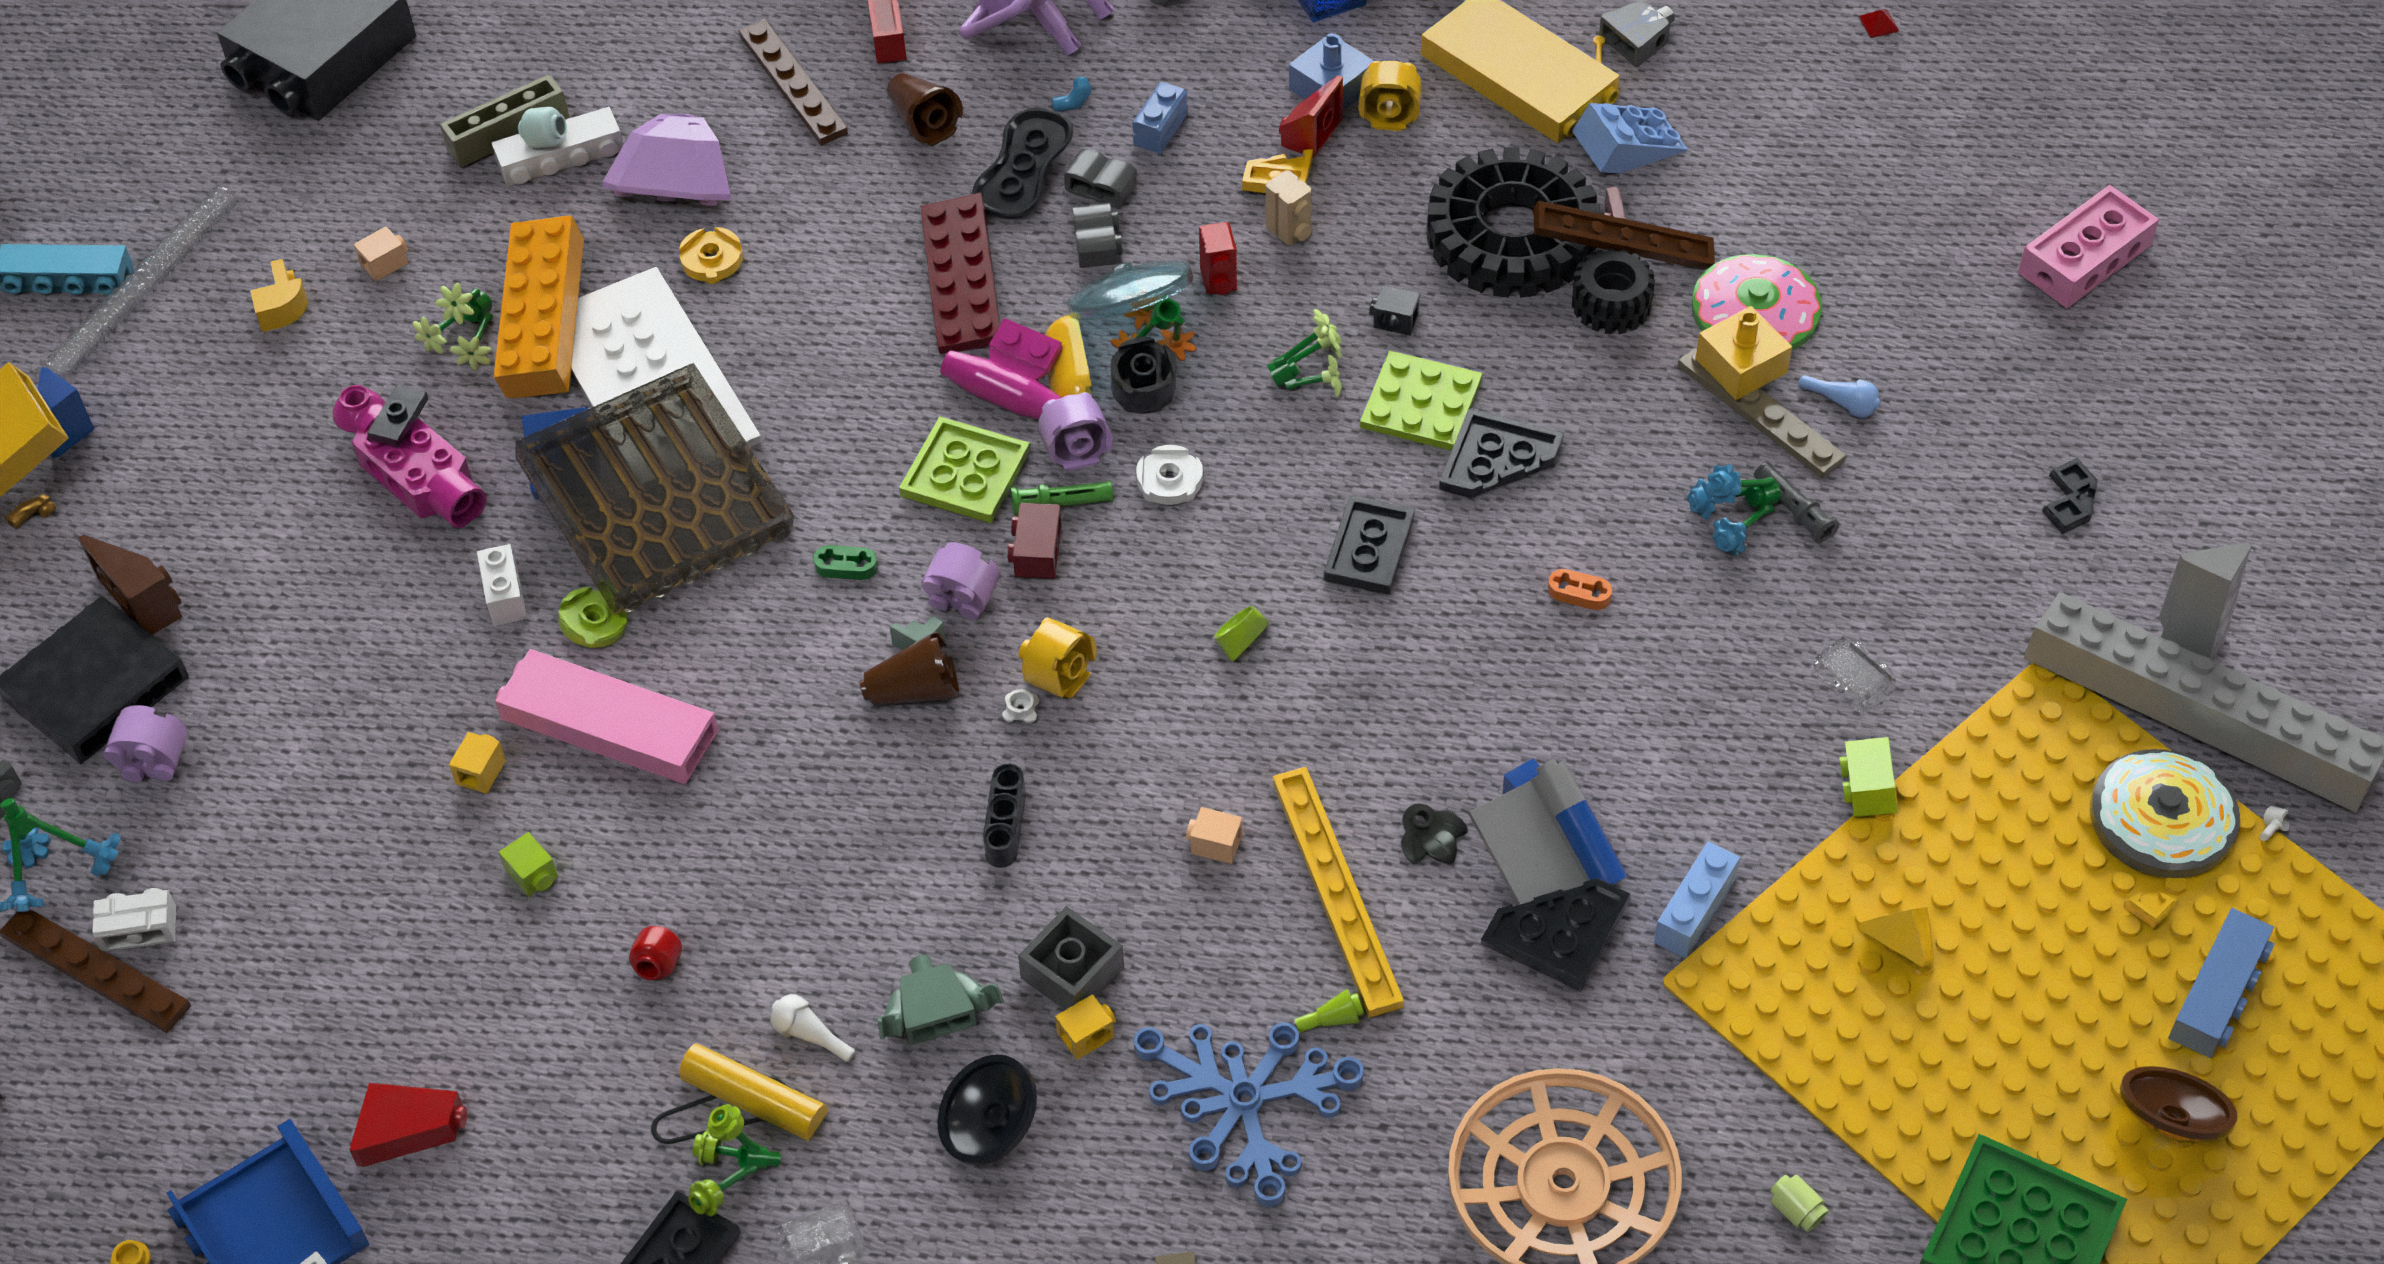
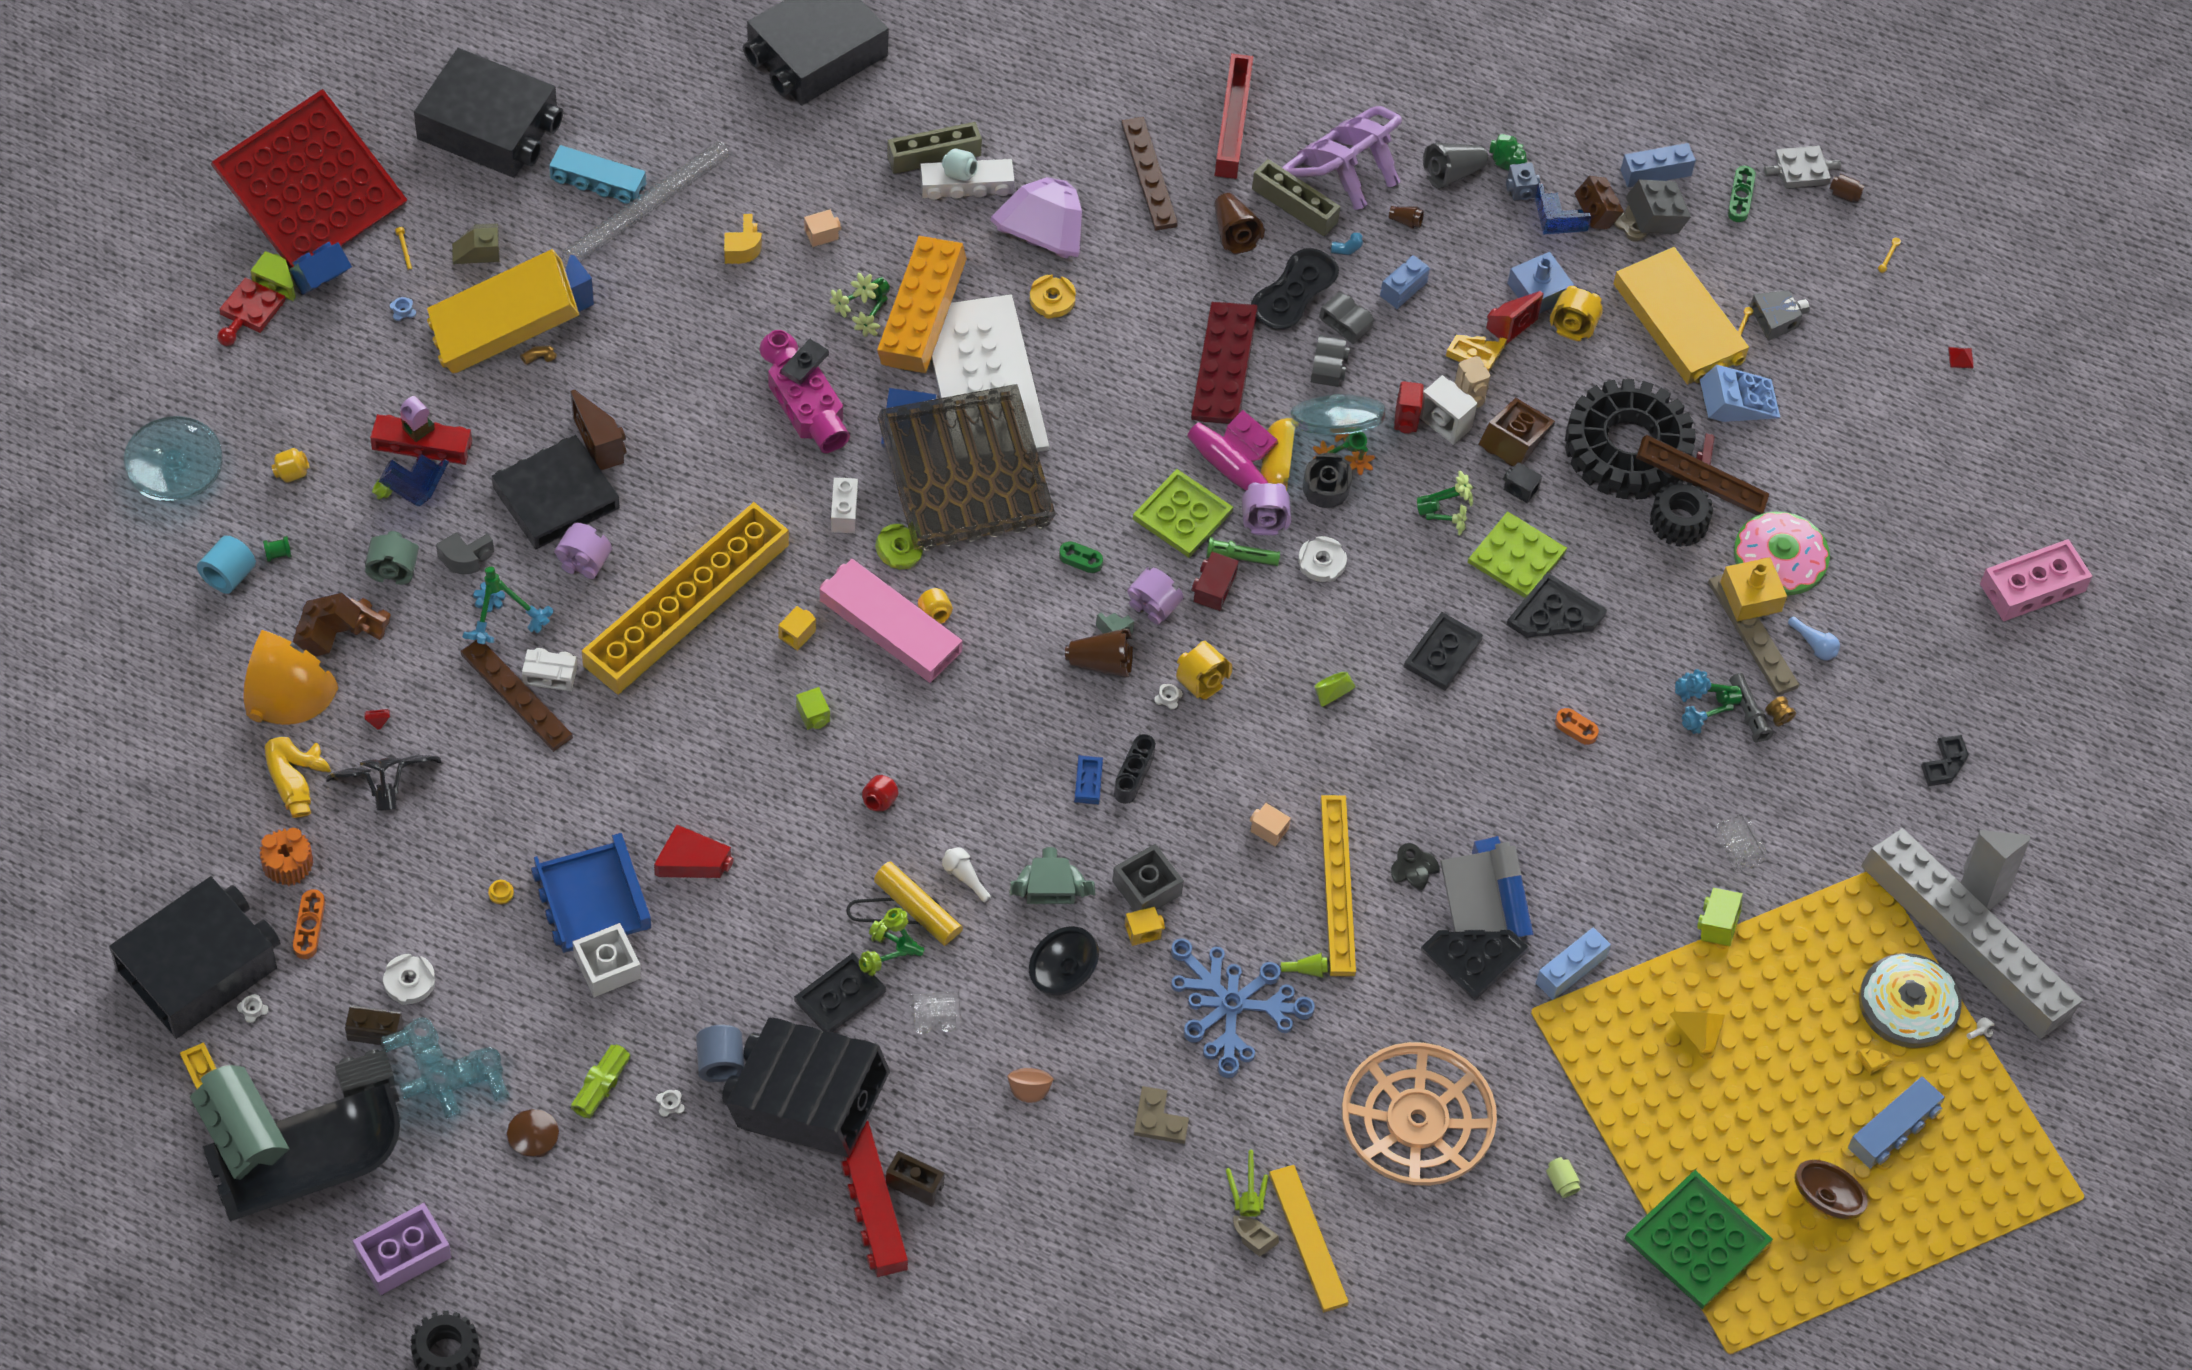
camera: 10 degrees right, 5 degrees up
(306, 770) = (685, 598): none -> yellow brick
(664, 676) = (935, 604): none -> yellow head
(945, 849) = (1088, 779): none -> blue plate
(989, 57) = (1296, 197): none -> olive brick
(1137, 44) = (1407, 216): none -> reddish brown cone
(1270, 248) = (1448, 409): none -> white brick
(1364, 255) = (1515, 432): none -> reddish brown slope
(1836, 494) = (1780, 711): none -> pearl gold wheel

